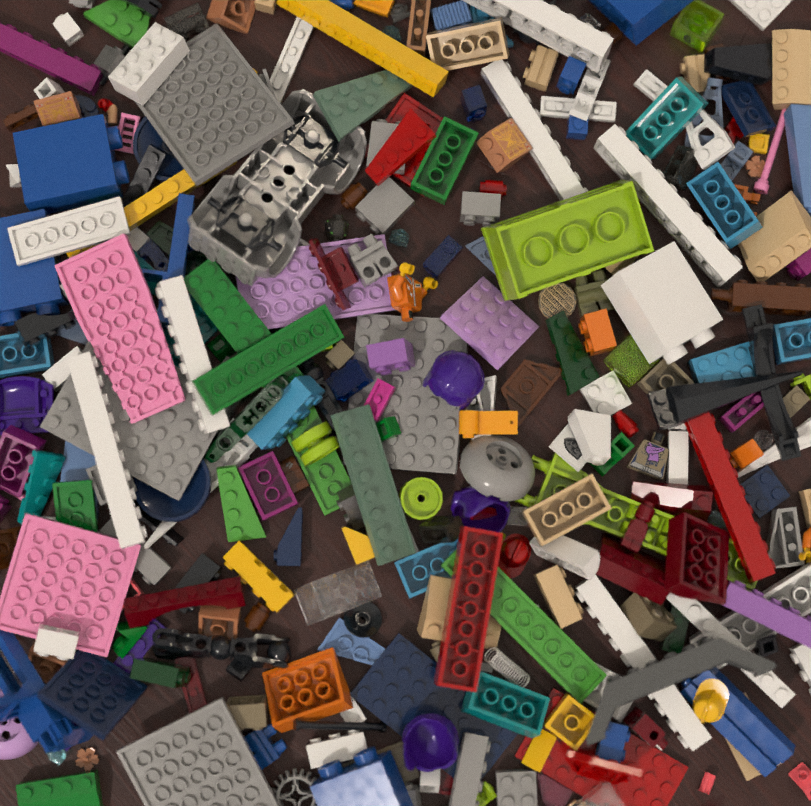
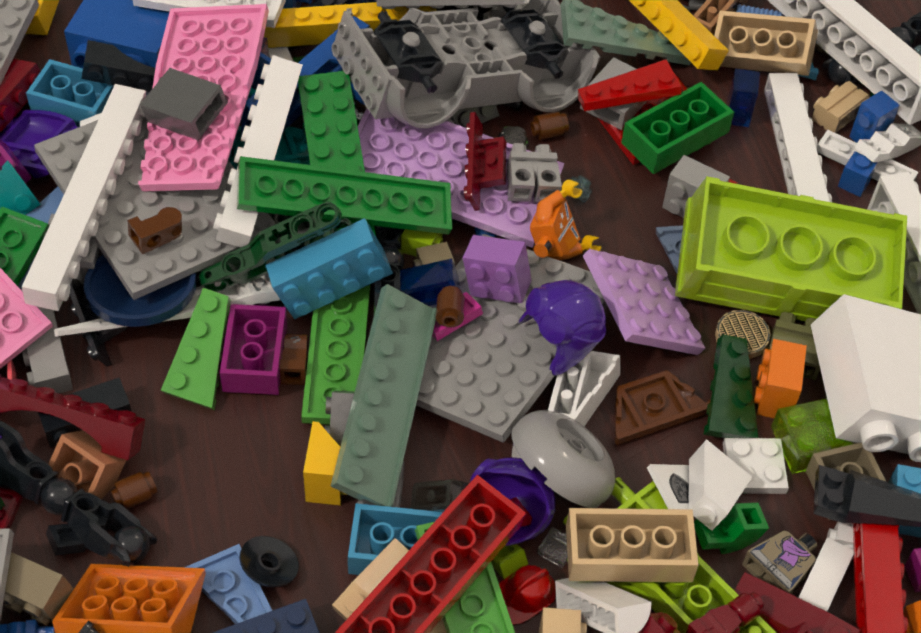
camera: 30 degrees right, 30 degrees down
(123, 351) = (183, 103): none -> dark grey brick
(169, 447) = (155, 230): none -> reddish brown leg
(258, 576) = (171, 446): yellow wedge -> none
(290, 546) = (238, 427): dark blue slope -> none
(314, 441) = (342, 320): lime wheel -> none
(337, 593) = (252, 502): clear bracket -> none
(377, 401) = (450, 307): none -> reddish brown brick
(384, 206) = (583, 148): light grey brick -> none
(388, 428) = (444, 352): green slope -> none
(426, 488) = (437, 451): lime wheel -> none
(442, 257) = (621, 223): clear blue brick -> none
(487, 423) = (561, 393): light orange door -> none
(504, 145) = (758, 150): nougat slope -> none
(625, 424) = (770, 507): red cone -> none

